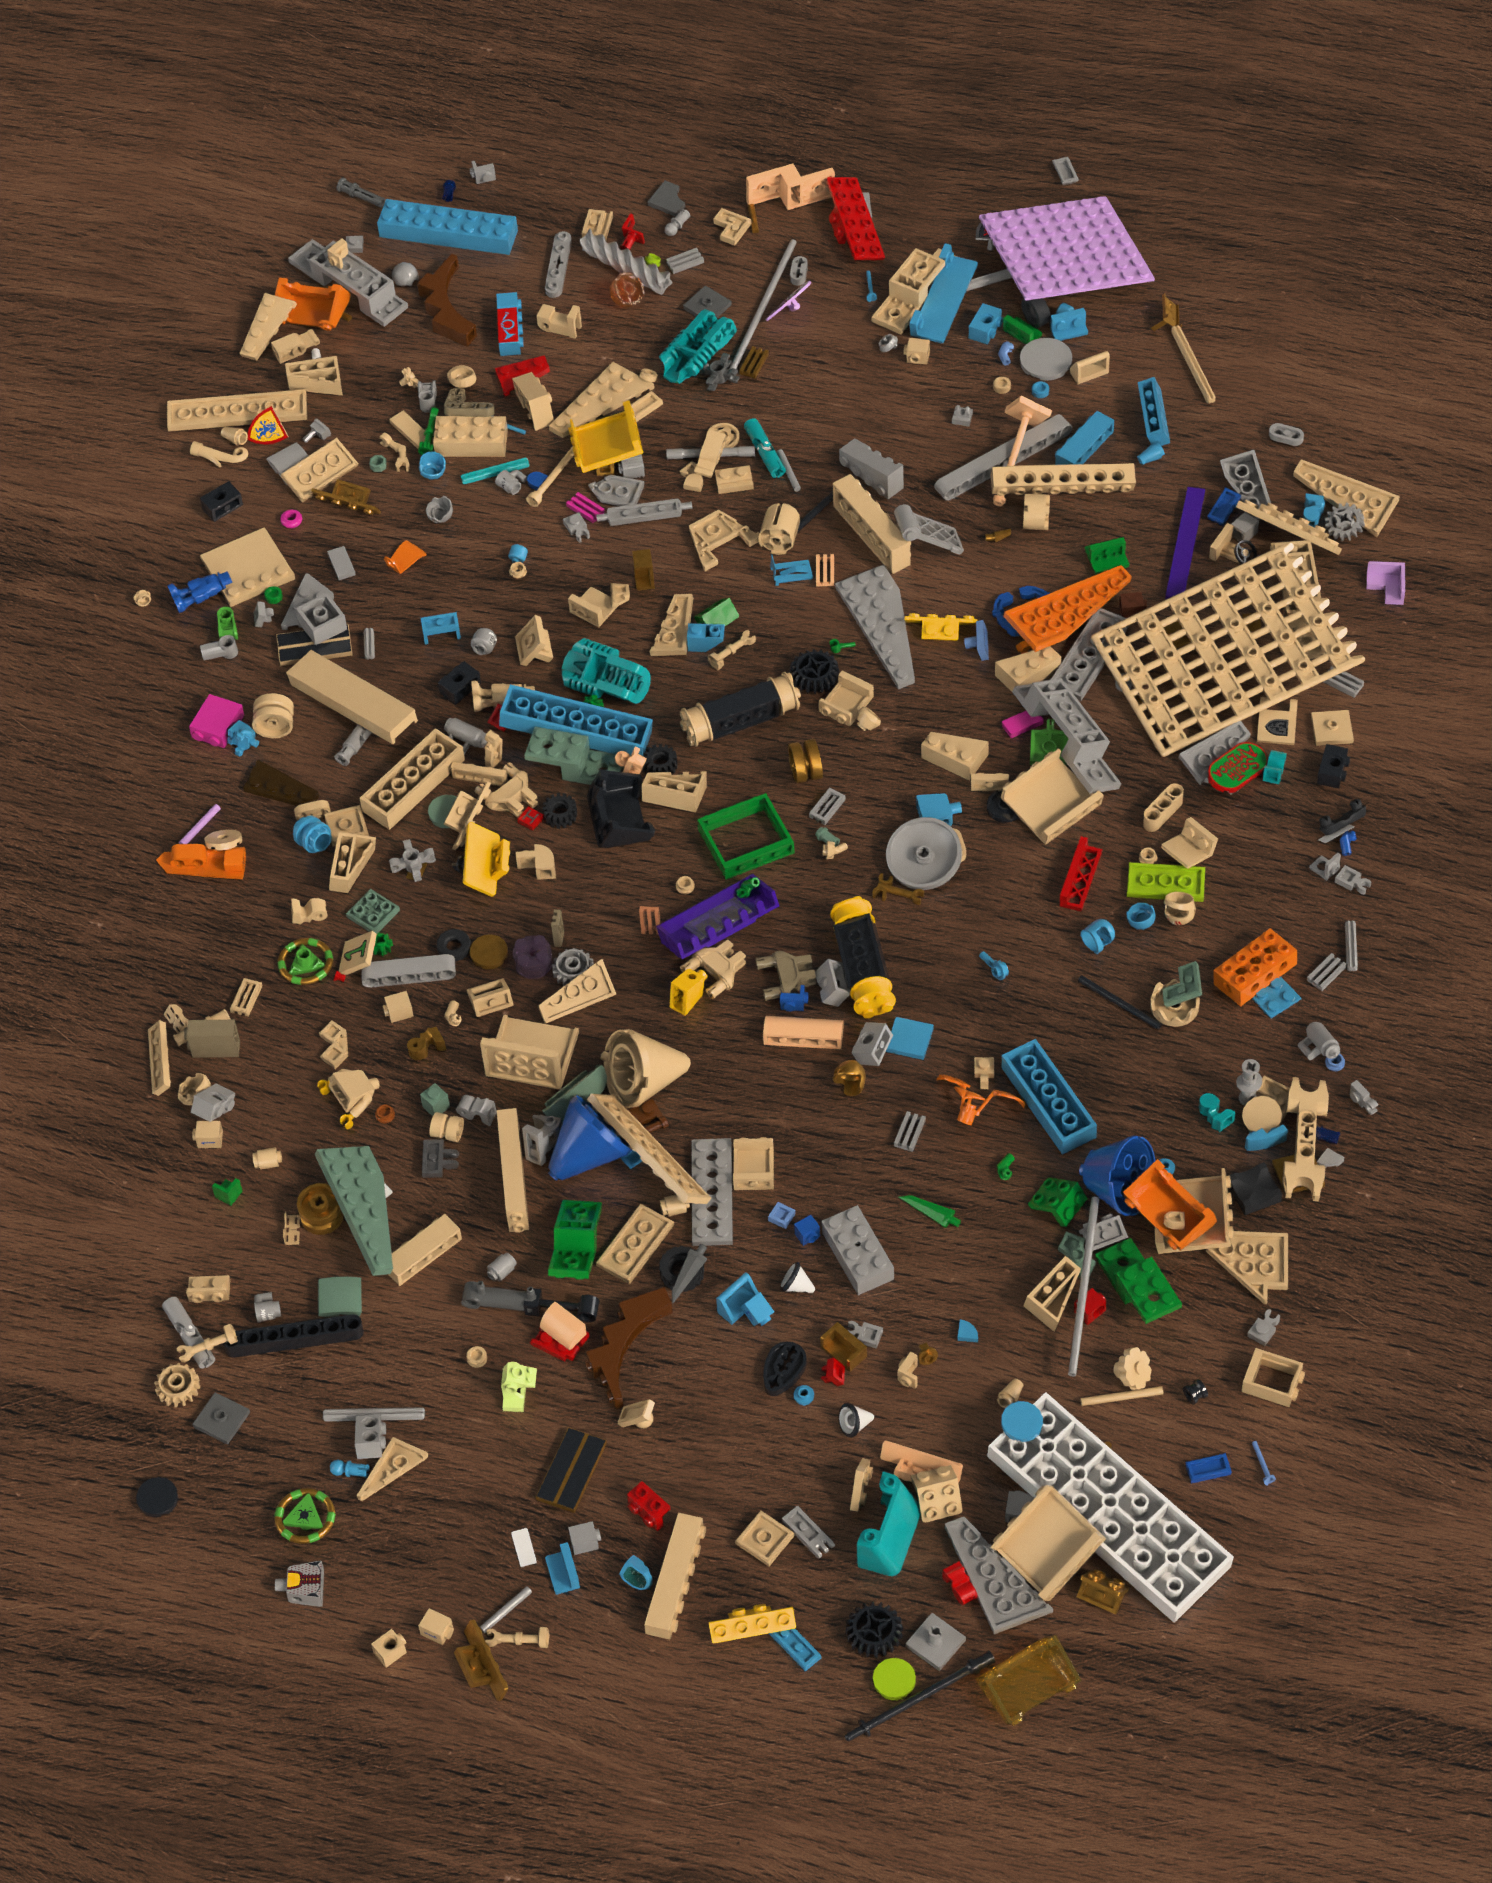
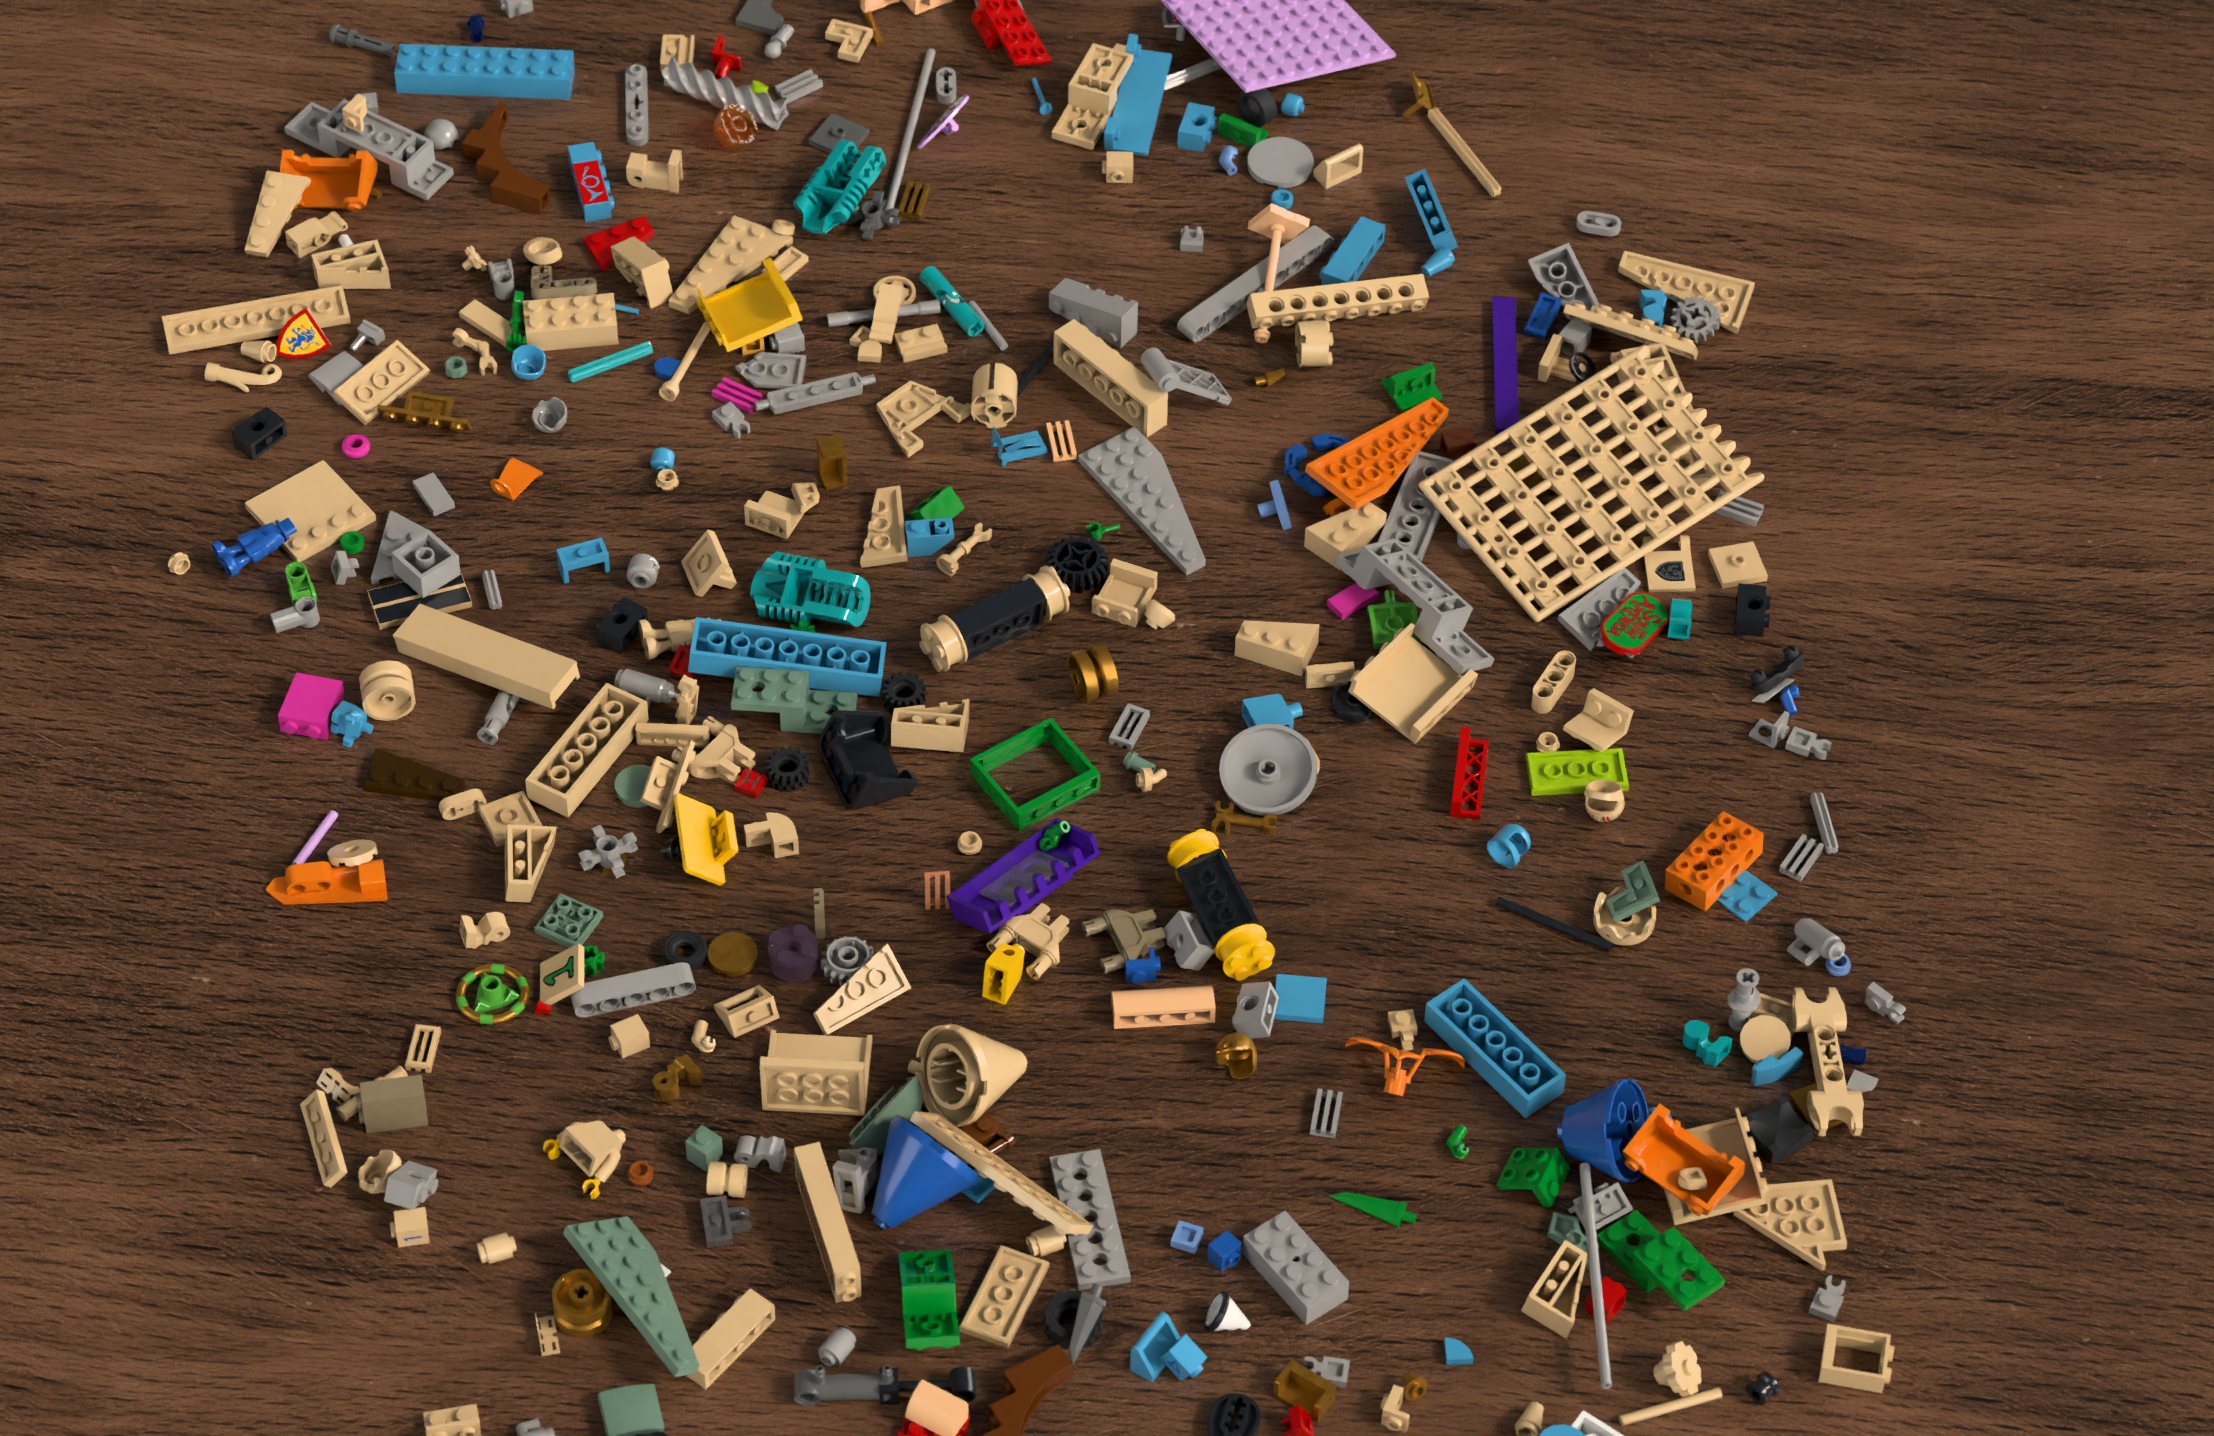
camera: 15 degrees left, 5 degrees down
(227, 1191) = (451, 1296): green panel -> none
(312, 834) = (469, 833): dark azure piece -> none
(338, 1050) = (560, 1099): tan tile -> none
(508, 481) = (633, 372): light grey piece -> none
(632, 763) = (870, 700): light nougat hips -> none
(753, 1164) = (1136, 1177): tan panel -> none
(888, 342) = (1079, 161): light grey hat -> none
(940, 628) = (1223, 495): yellow bracket -> none
(998, 968) = (1394, 900): dark azure plate -> none
(1001, 385) = (1232, 198): tan tile -> none
(1069, 324) = (1301, 118): dark azure bracket -> none
(1141, 916) = (1557, 815): dark azure hair -> none
(1387, 577) = (1764, 379): lavender panel -> none

